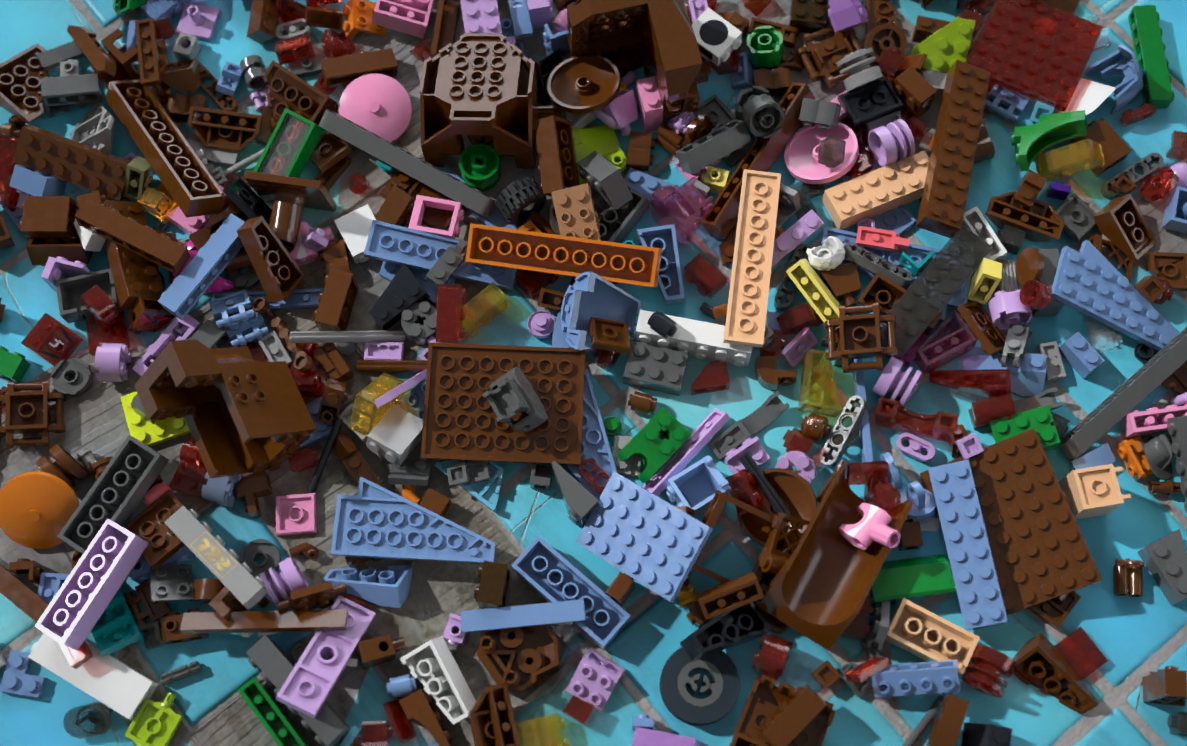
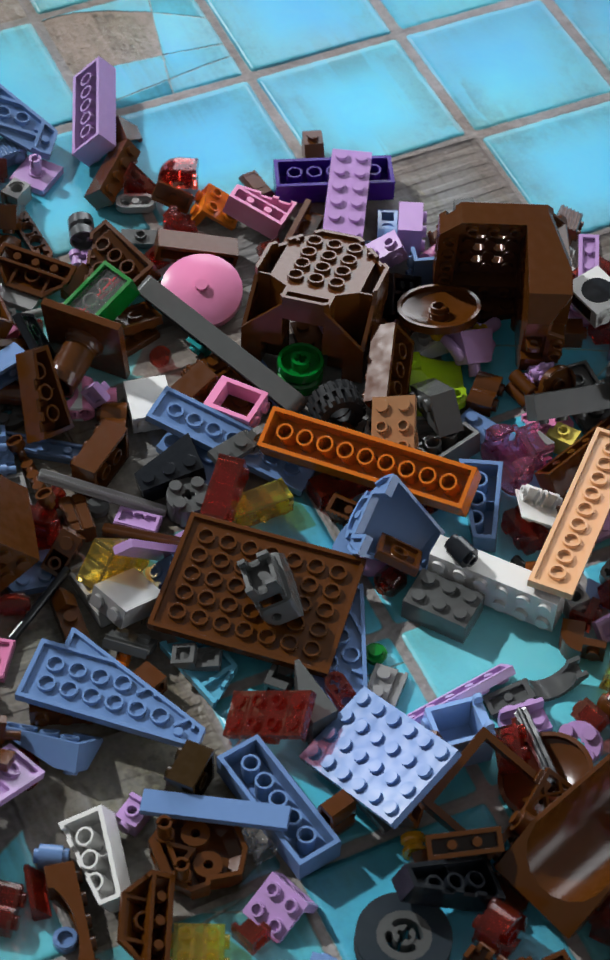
camera: 10 degrees right, 20 degrees down
(229, 79) = (52, 232): medium blue slope -> none
(294, 49) = (131, 217): clear red brick -> none
(370, 652) = (35, 811): reddish brown torso -> none
(524, 34) = (389, 253): none -> lavender brick
(541, 324) = (323, 533): lavender plate -> none
(543, 515) = (270, 715): none -> clear red plate
(642, 402) = (417, 637): reddish brown brick -> none
(649, 104) = (507, 346): bright pink brick -> none
(650, 447) = (421, 676): green brick -> none
(711, 379) = (503, 632): clear red slope -> none
(712, 256) = (538, 504): none -> white hinge

